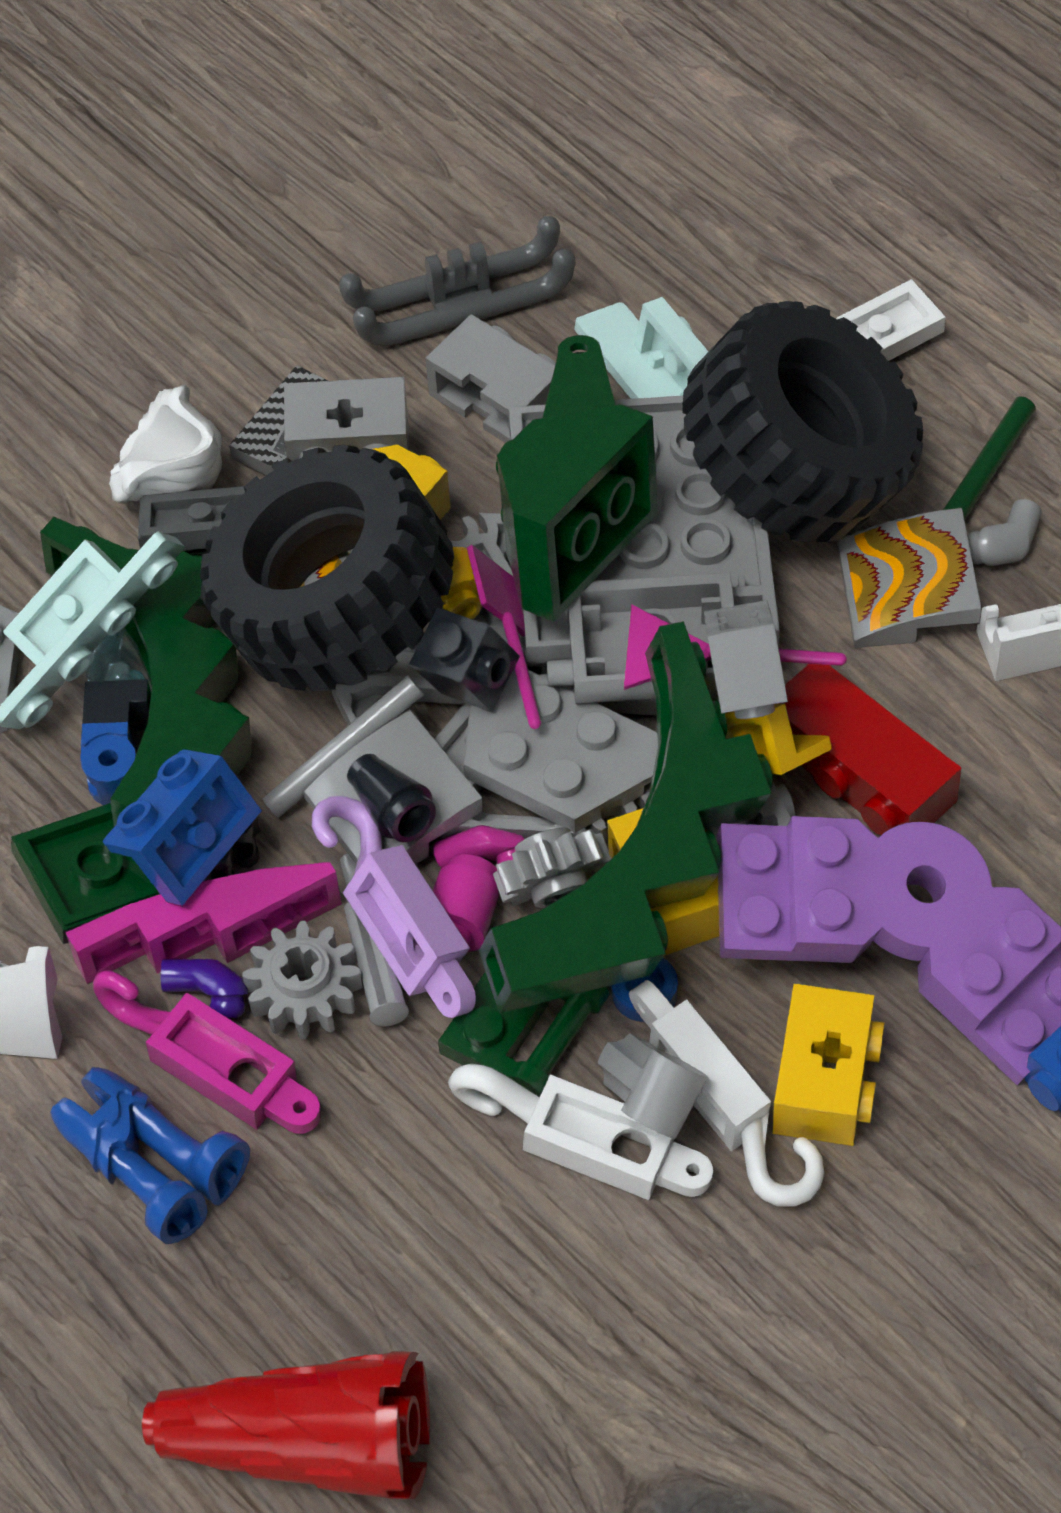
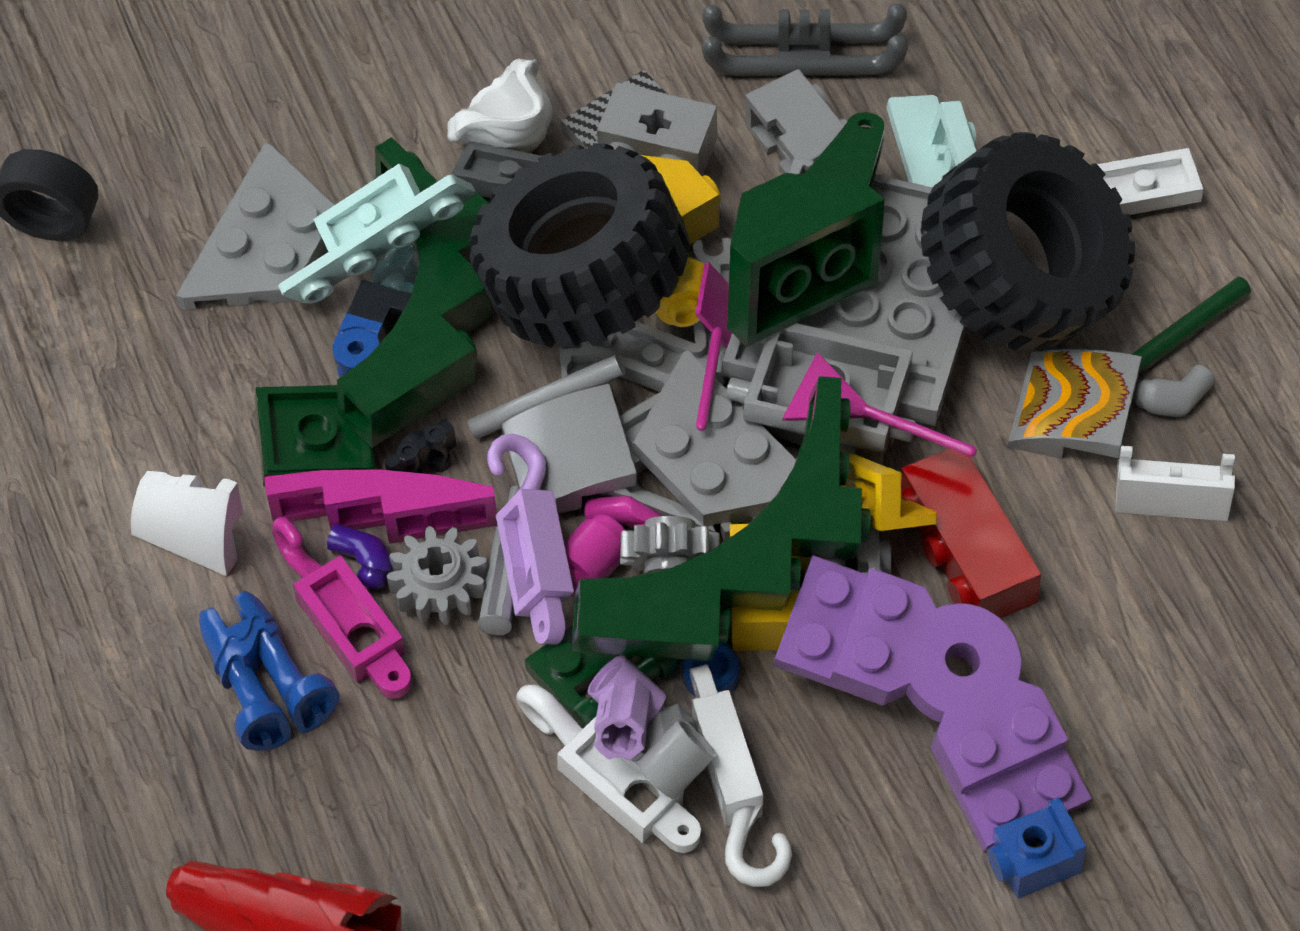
camera: 20 degrees right, 0 degrees up
(184, 823) = (385, 418): blue bracket -> none
(393, 800) = (561, 453): black cone -> none
(464, 659) = (662, 355): black brick -> none
(580, 1056) = (625, 708): none -> lavender piece
(745, 659) = (879, 424): light grey brick -> none
(817, 1099) = (826, 781): yellow brick -> none

